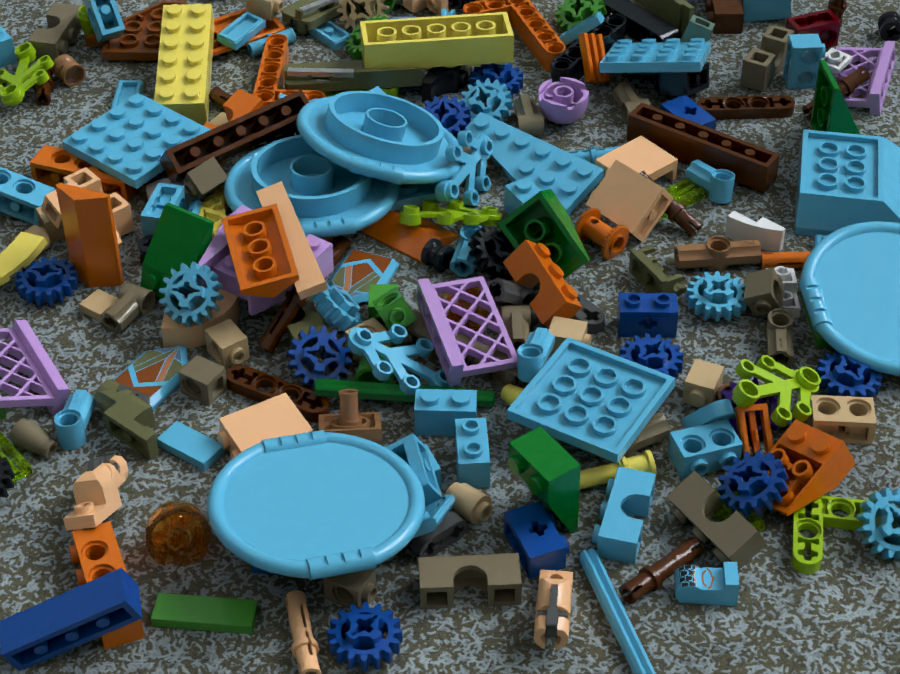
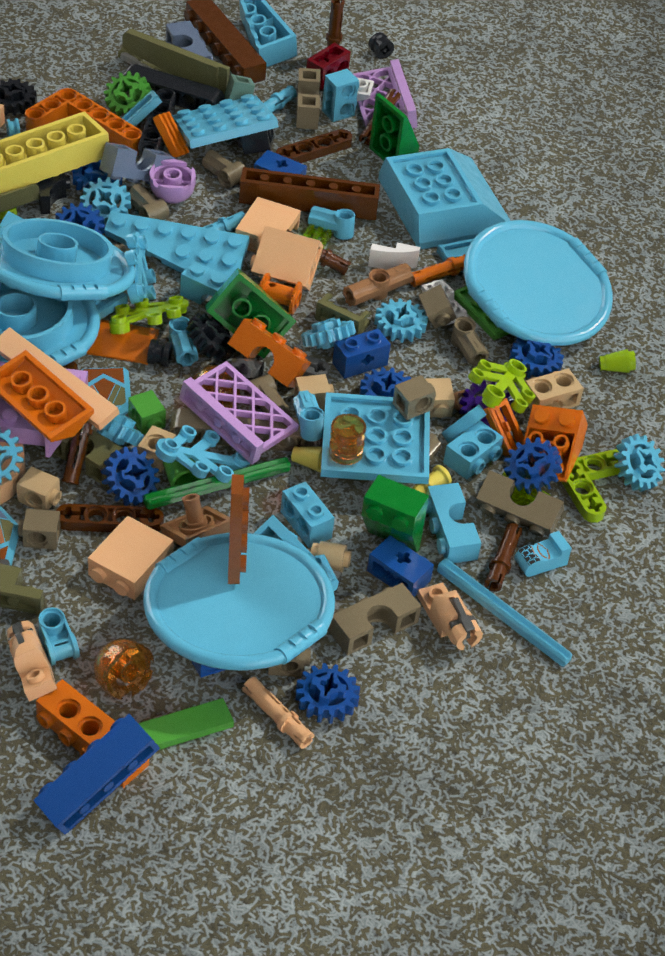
camera: 35 degrees left, 5 degrees up
(141, 482) = (58, 640): none -> medium azure piece
(190, 445) = (70, 589): medium azure tile -> none
(341, 416) = (238, 528): none -> dark orange wing
(394, 309) = (170, 413): bright green brick -> none
(438, 408) = (267, 485): medium azure brick -> none
(514, 69) = (120, 162): none -> sand blue arch
(545, 385) = (347, 439): none -> clear orange wheel
(621, 282) = (327, 332): none -> medium azure gear
(653, 367) = (414, 397): none -> dark tan brick
(722, 58) = (278, 100): none -> medium azure pin

